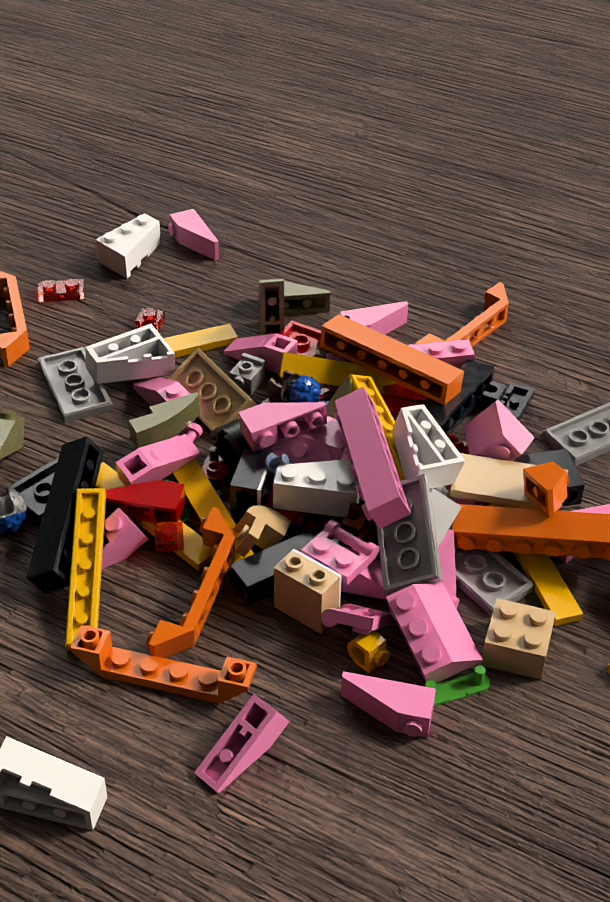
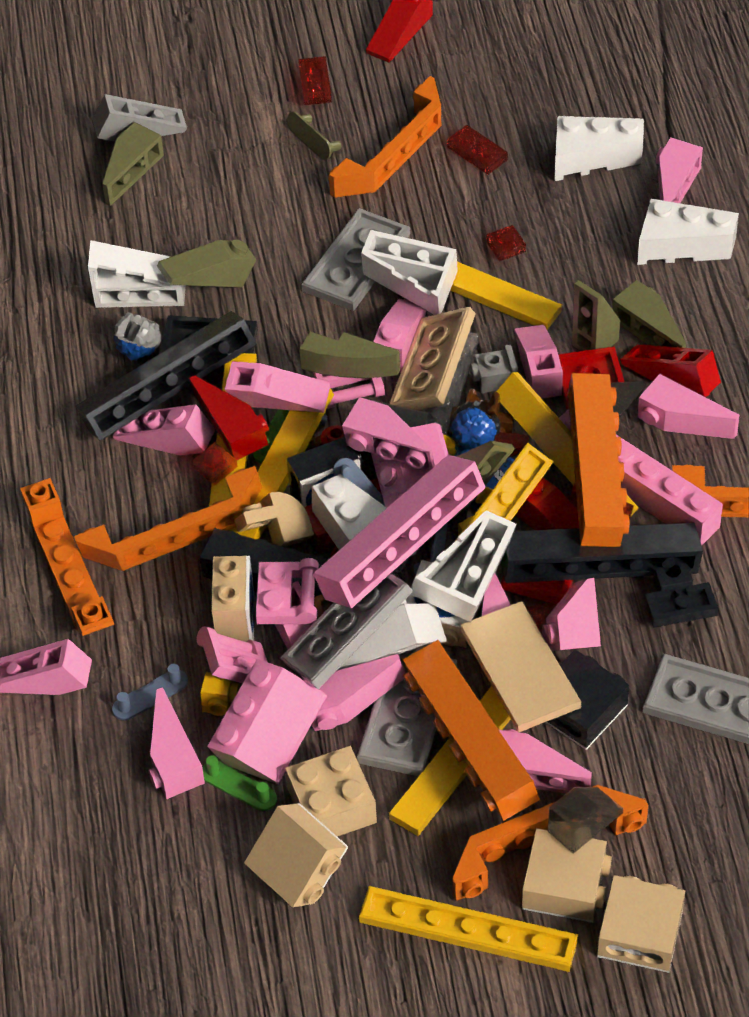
camera: 55 degrees right, 10 degrees up
(86, 561) = (122, 431): yellow tile -> none
(241, 250) = (685, 232): none -> white wedge
(324, 692) = (138, 701): none -> sand blue piece
(344, 299) = (686, 366): none -> red slope
(546, 486) = (513, 694): orange slope -> none
(566, 680) = (296, 855): none -> tan piece

